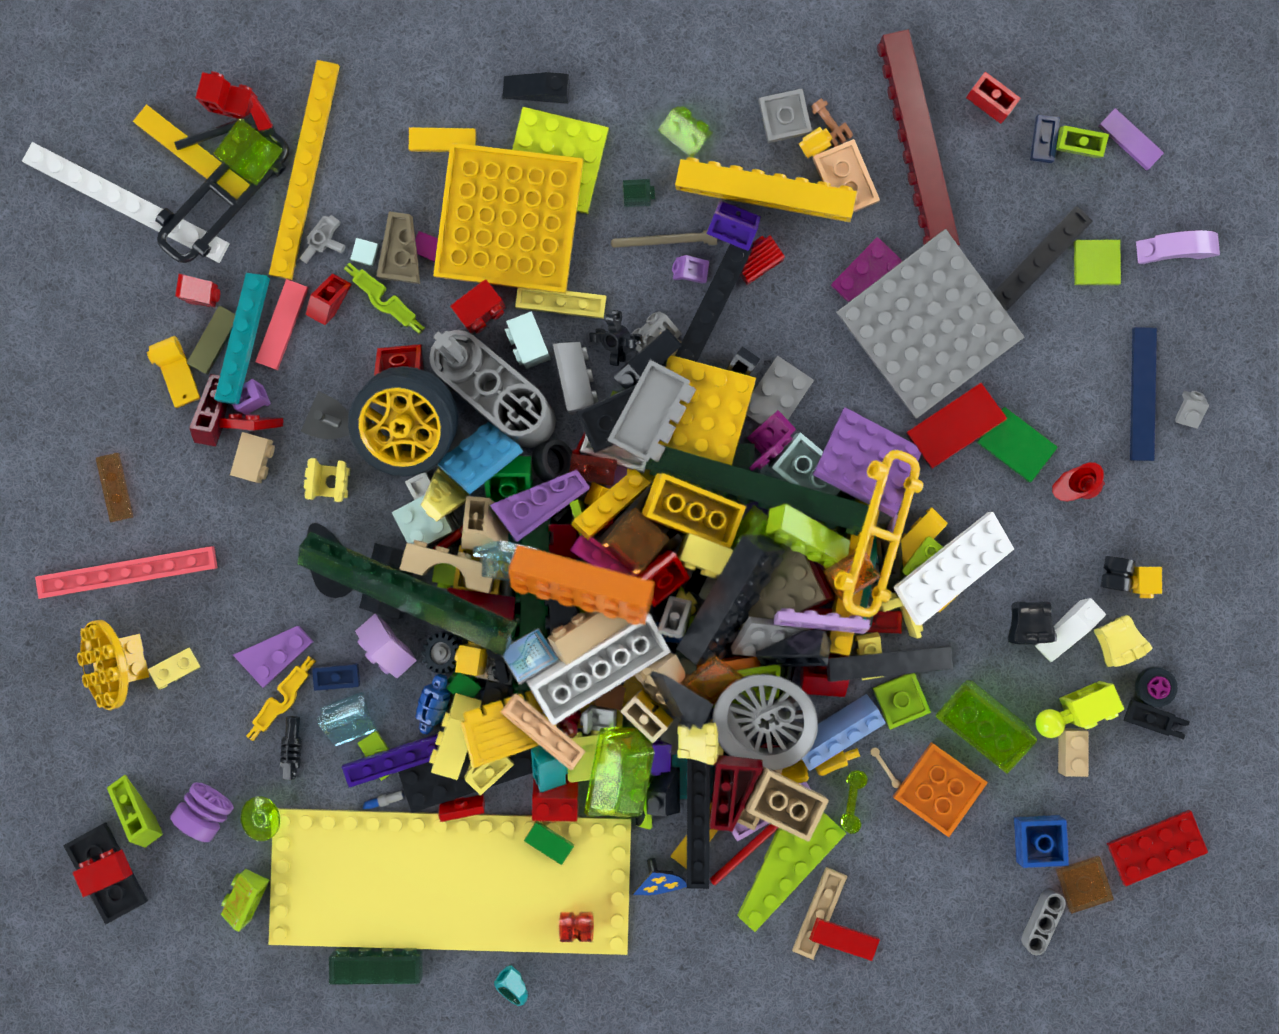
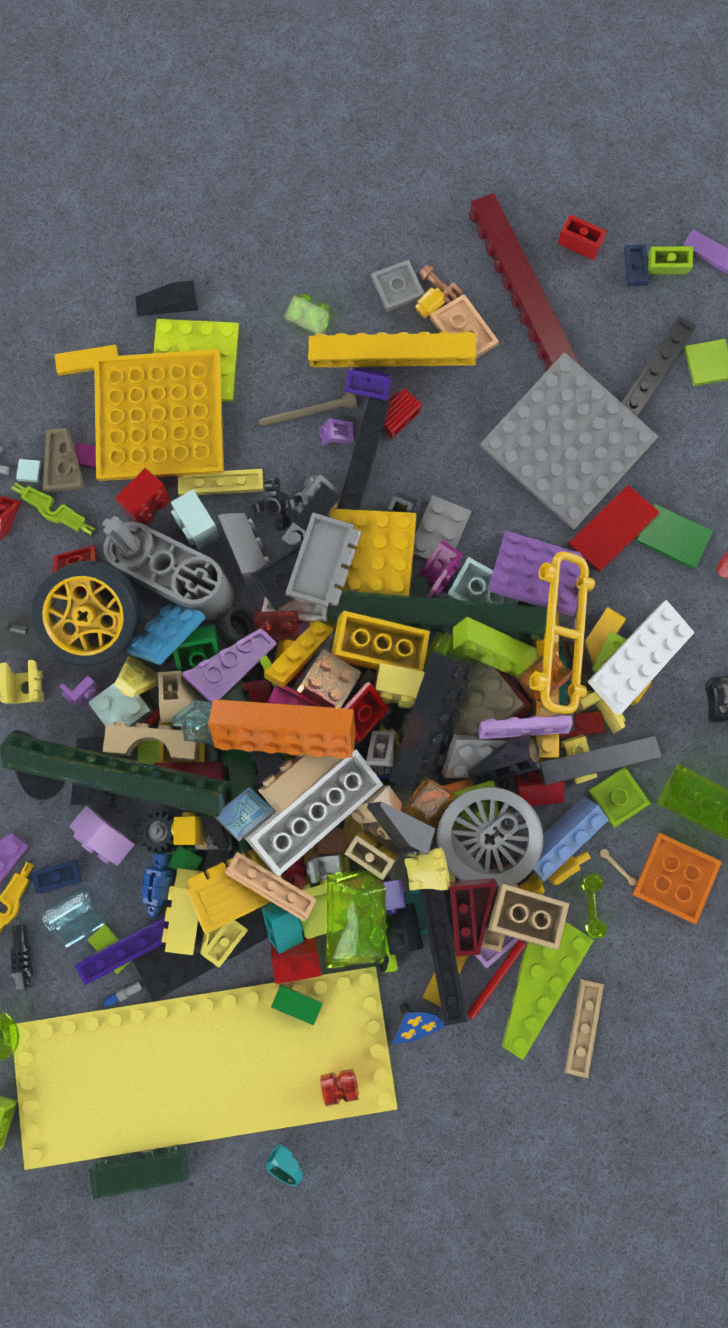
camera: 10 degrees left, 10 degrees down
(390, 501) = (82, 693): none -> medium lavender bracket
(418, 485) = (110, 673): white plate -> none
(461, 808) = (202, 986): red plate -> none
(638, 193) = (275, 373): clear green brick -> none
(844, 939) = (615, 1050): red tile -> none
(866, 270) = (498, 405): magenta plate -> none

